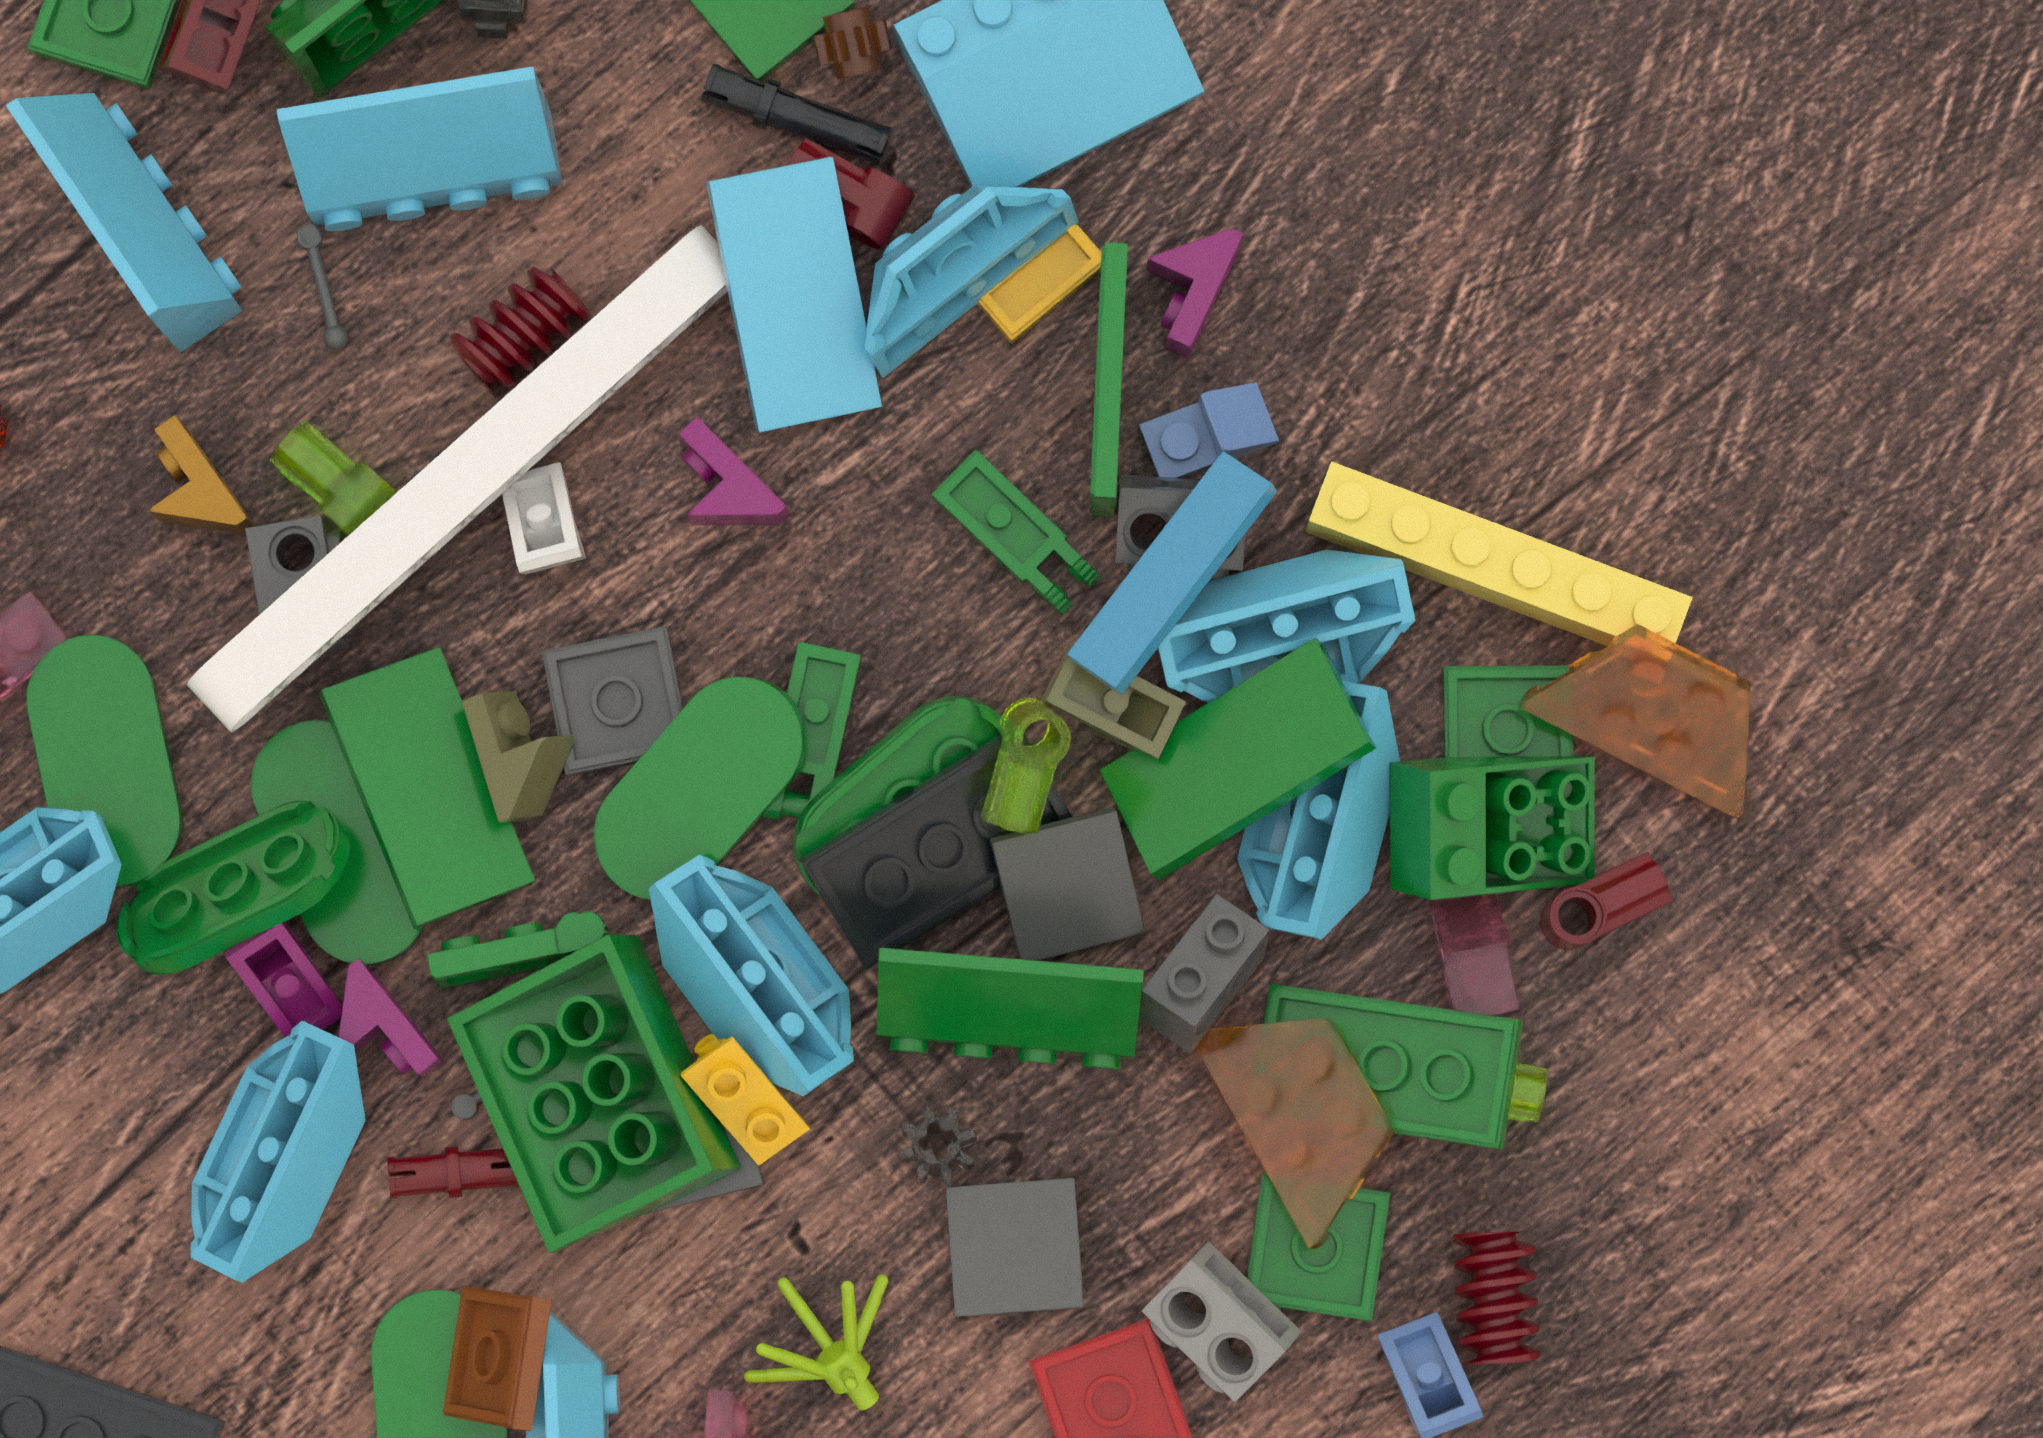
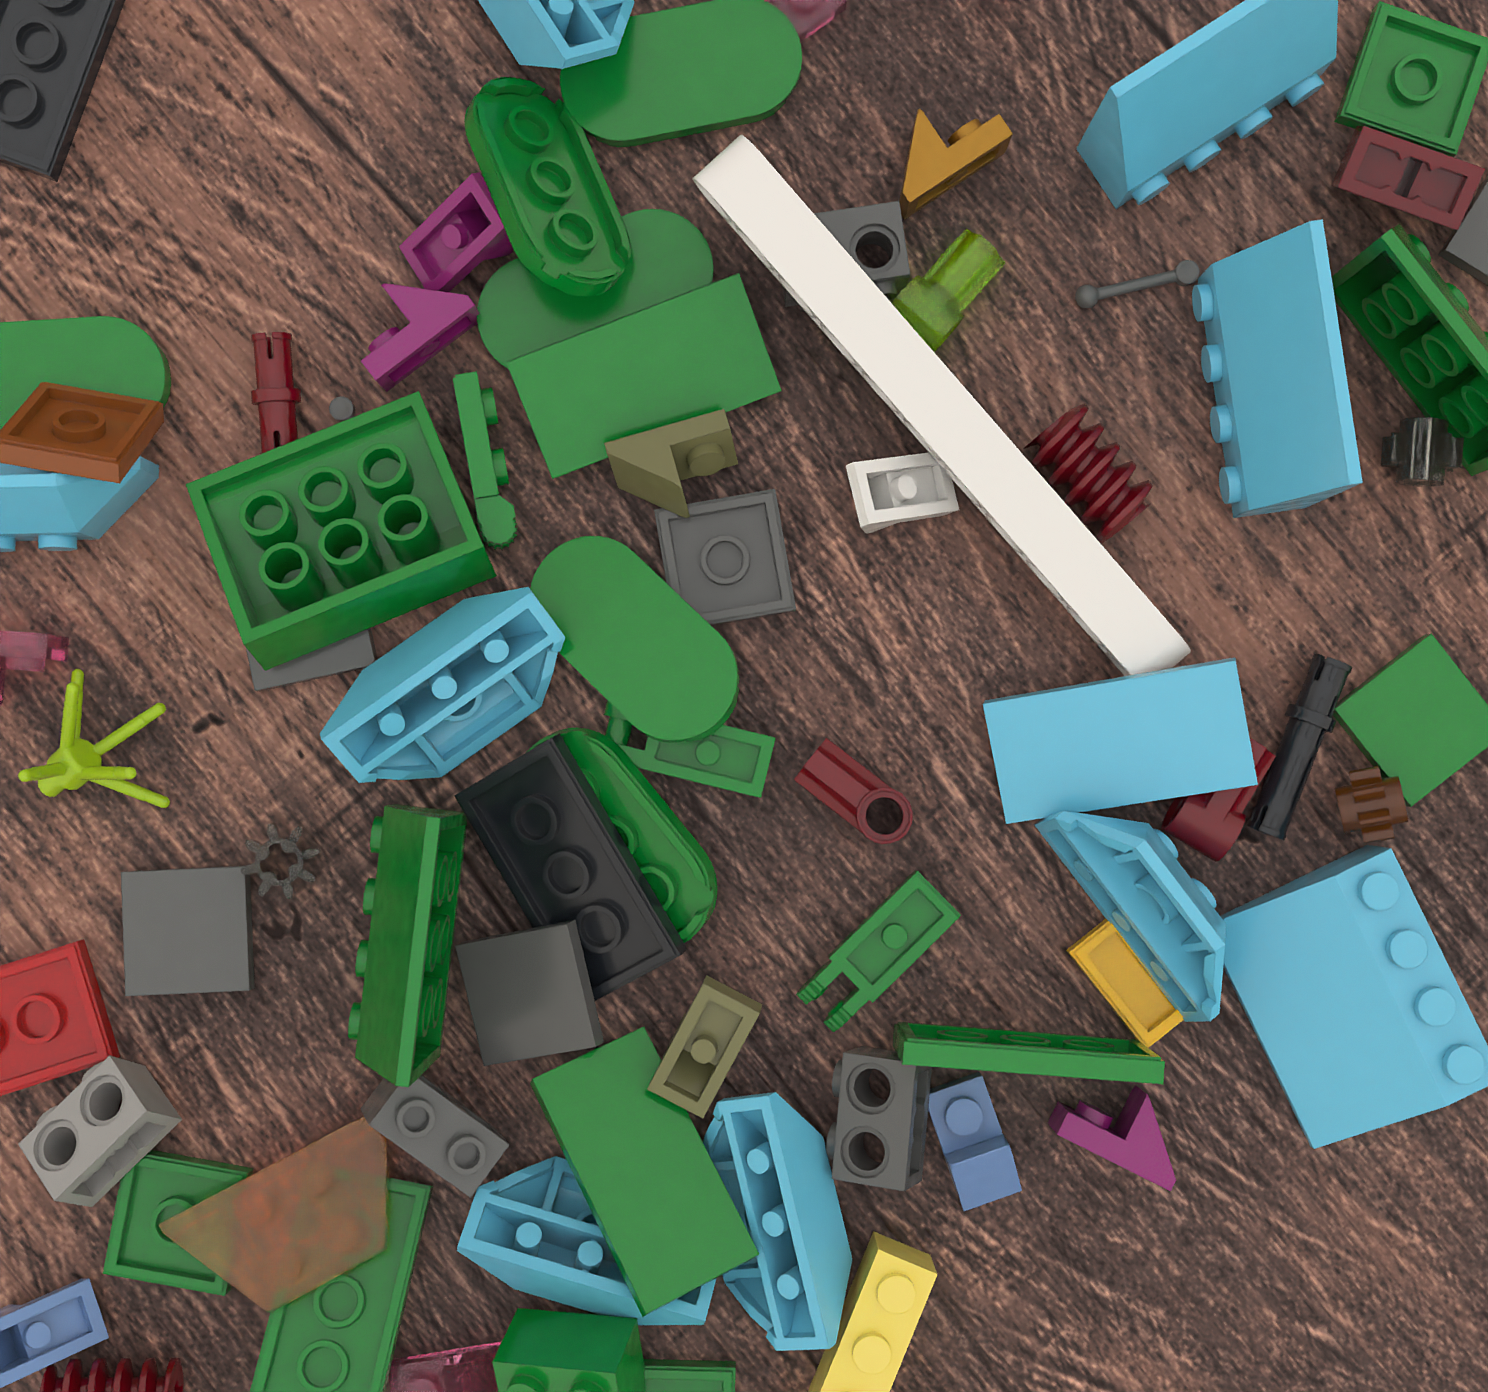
camera: 90 degrees right, 5 degrees up
(277, 1153) = (288, 224): medium azure wedge -> none
(740, 494) = (923, 684): magenta slope -> none
(743, 1098) = (329, 673): yellow hinge -> none
(851, 565) = (850, 789): none -> dark red piece
(1025, 772) = (636, 959): clear neon green piece -> none
(1172, 572) = (826, 1117): dark azure tile -> none

